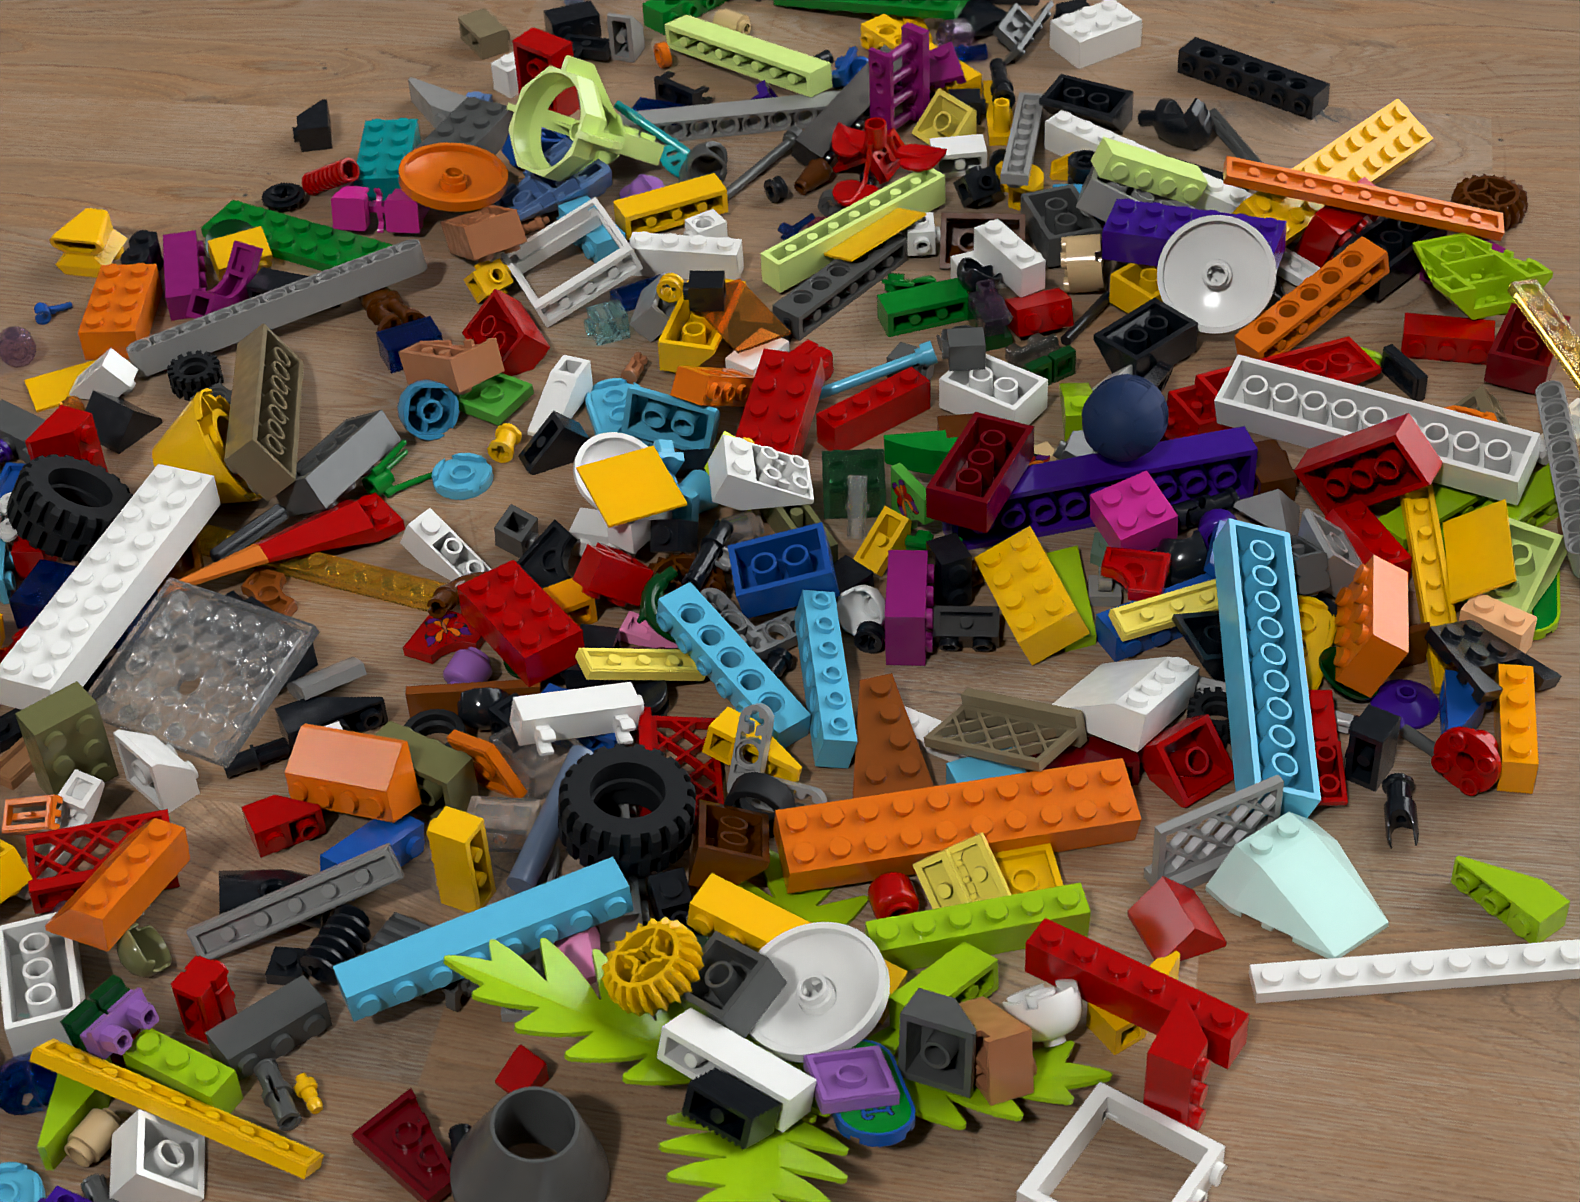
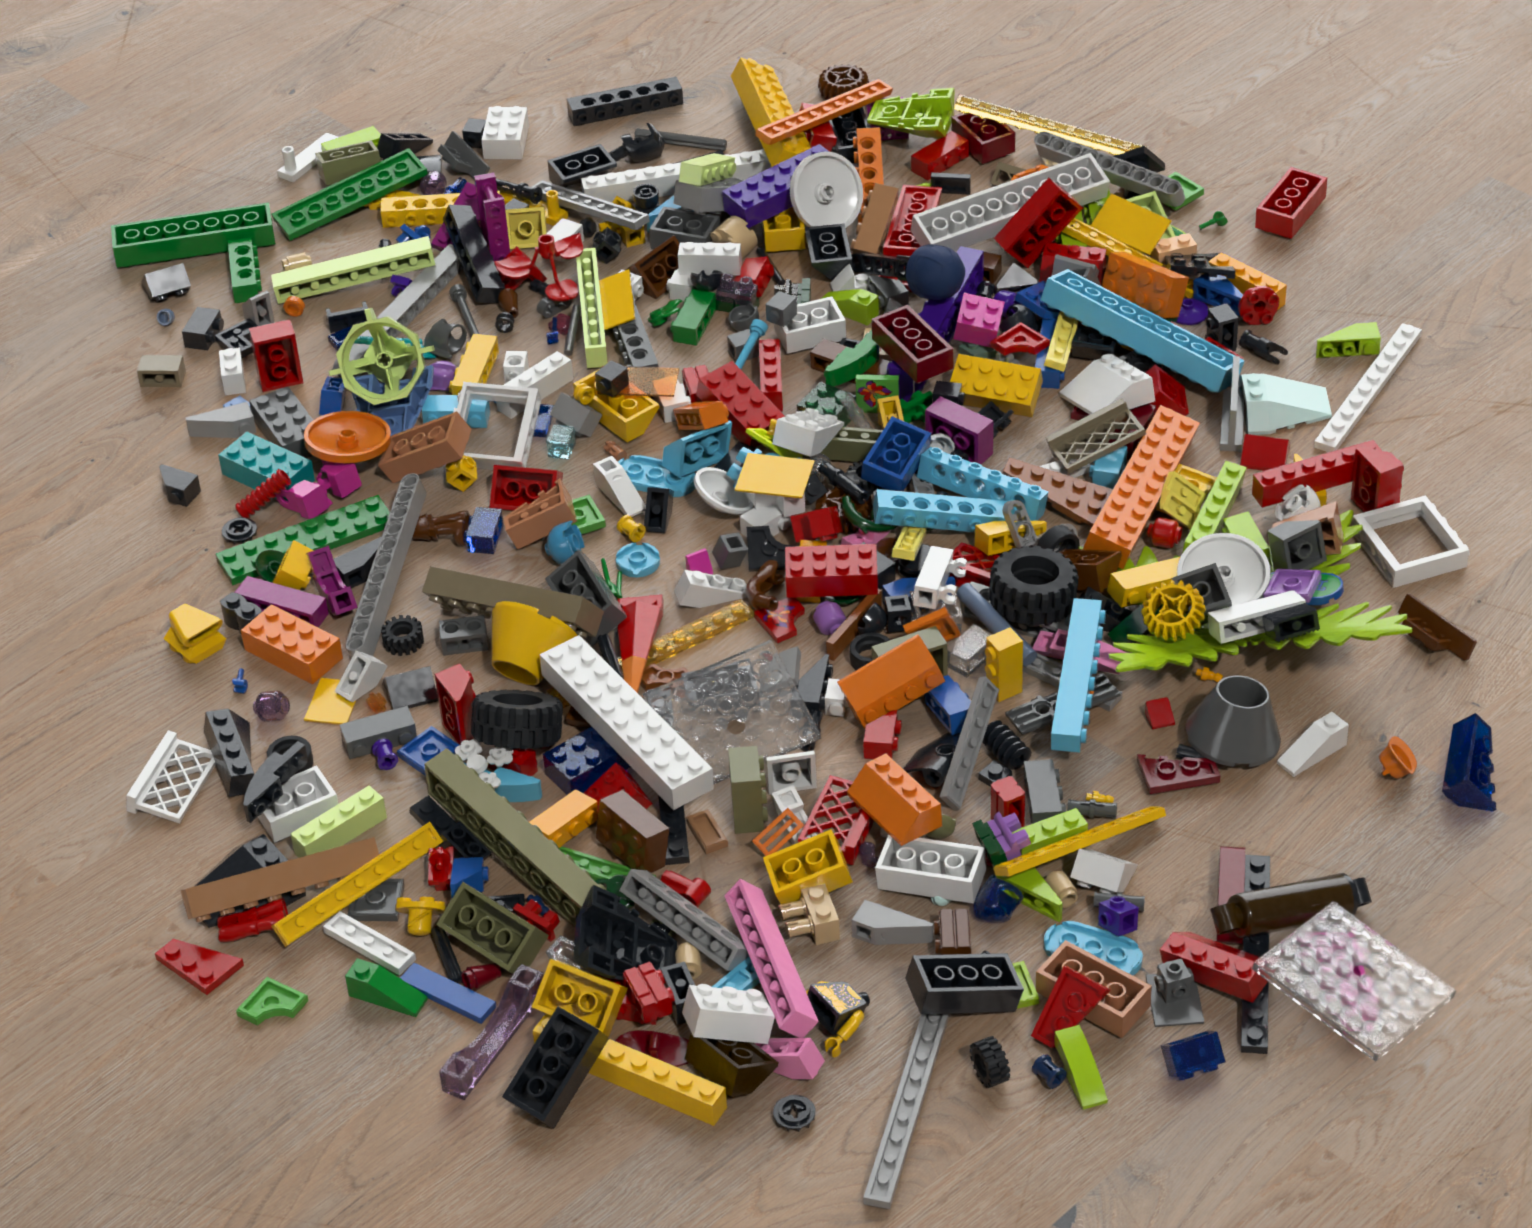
camera: 55 degrees left, 0 degrees up
(481, 523) = (699, 562): none -> dark pink slope
(647, 1093) = (1209, 675): none -> light orange piece
(1250, 335) = (876, 219): none -> medium nougat brick

